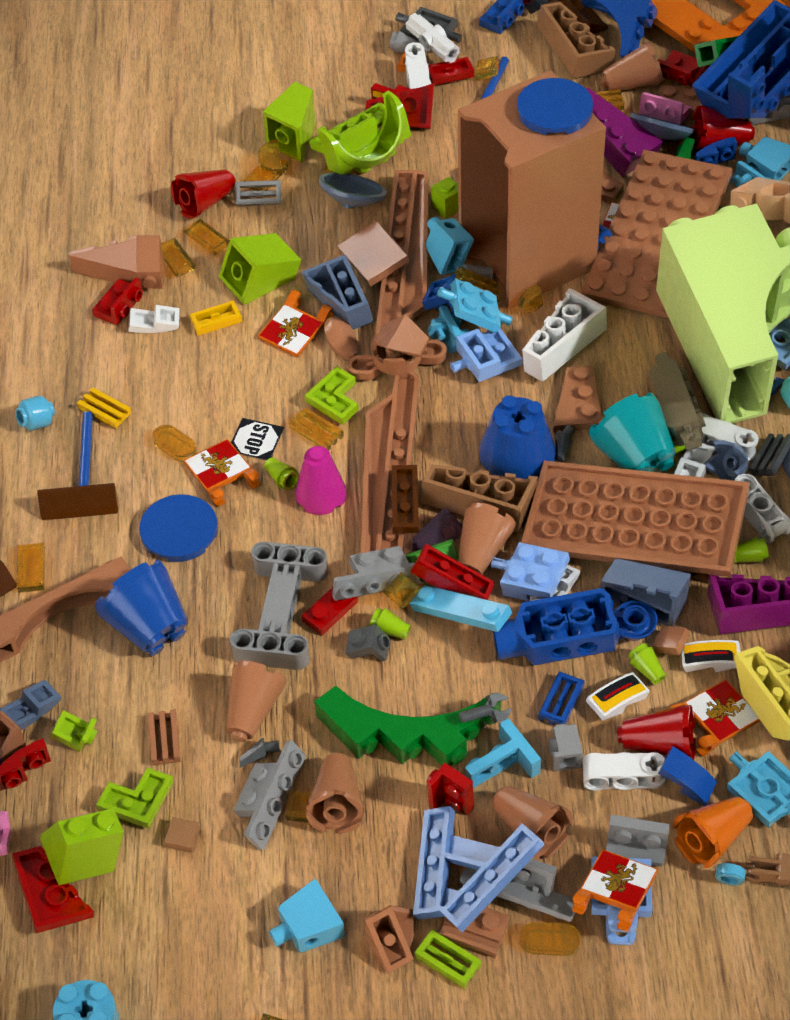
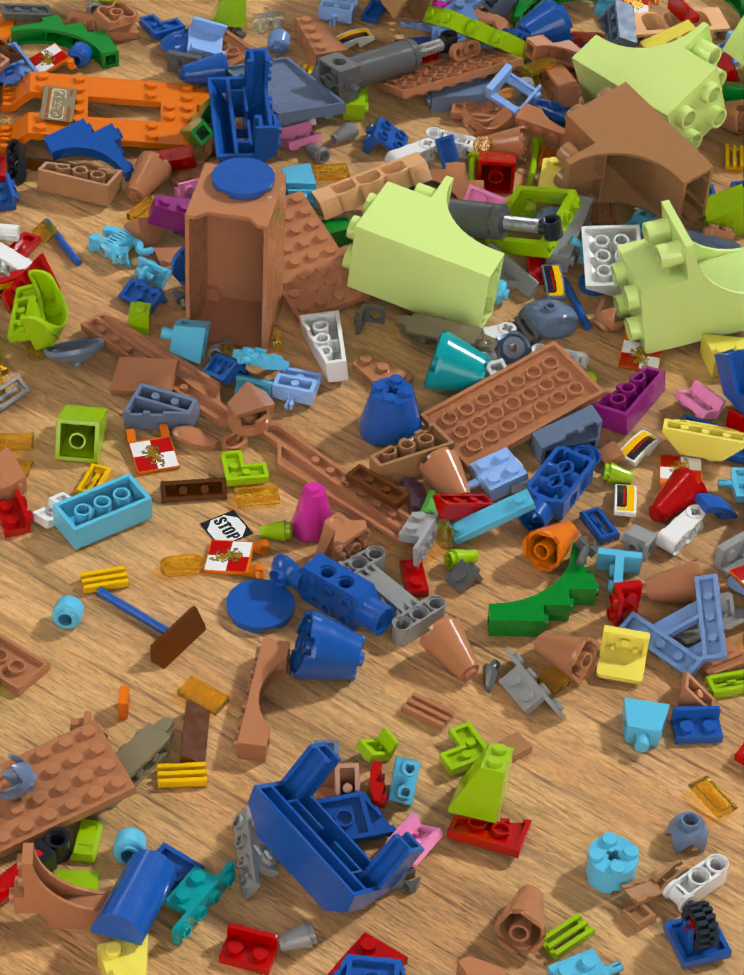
camera: 55 degrees left, 10 degrees down
(43, 778) = (404, 780): none -> medium azure hips
(173, 346) = (102, 511): none -> medium azure brick
(232, 566) = (334, 591): none -> blue brick
(274, 384) = (193, 490): none -> reddish brown slope
(303, 522) = (342, 537): none -> nougat piece
(354, 967) = (696, 724): none -> blue bracket
(384, 841) = (623, 654): none -> light yellow bracket
(479, 676) = (549, 545): none -> orange cone
(638, 330) = (364, 315): none -> dark grey bracket

